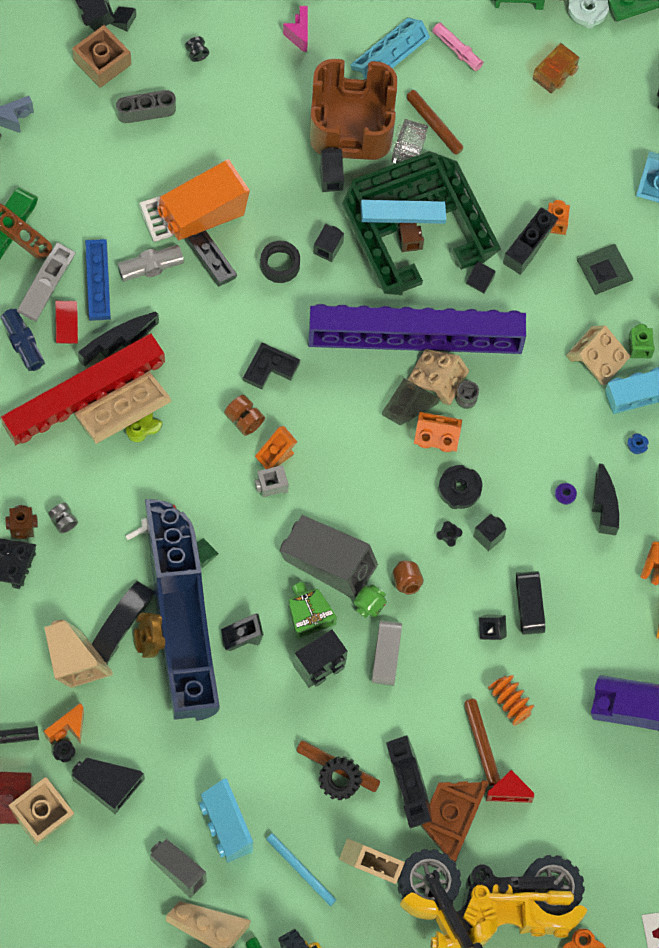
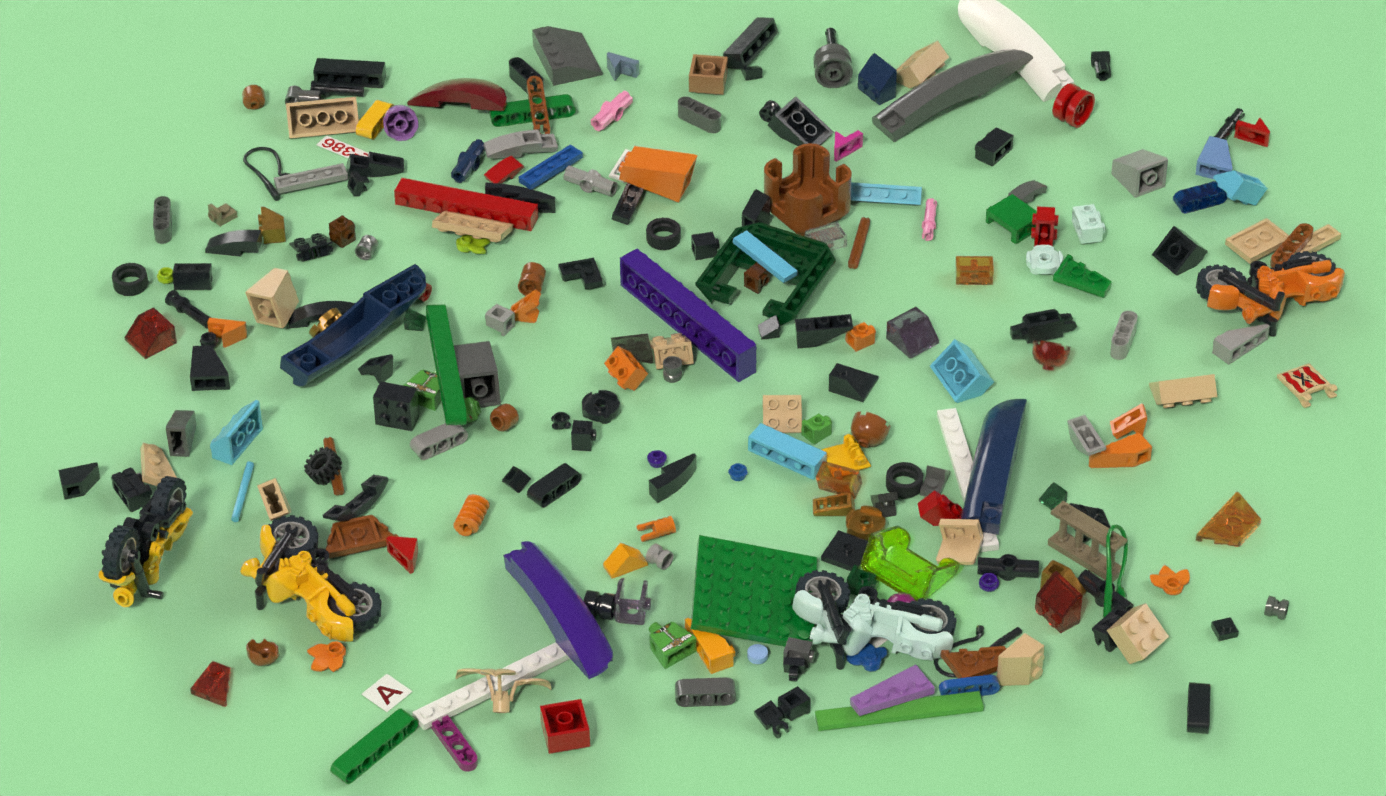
camera: 55 degrees right, 25 degrees down
(41, 811) = (153, 348): tan slope -> none
(68, 170) = (611, 111): none -> bright pink piece
(241, 43) = (799, 124): none -> black slope
(308, 577) = (446, 365): none -> green beam
(482, 742) = (430, 518): dark orange axle -> none
(594, 178) = (911, 332): none -> clear purple slope

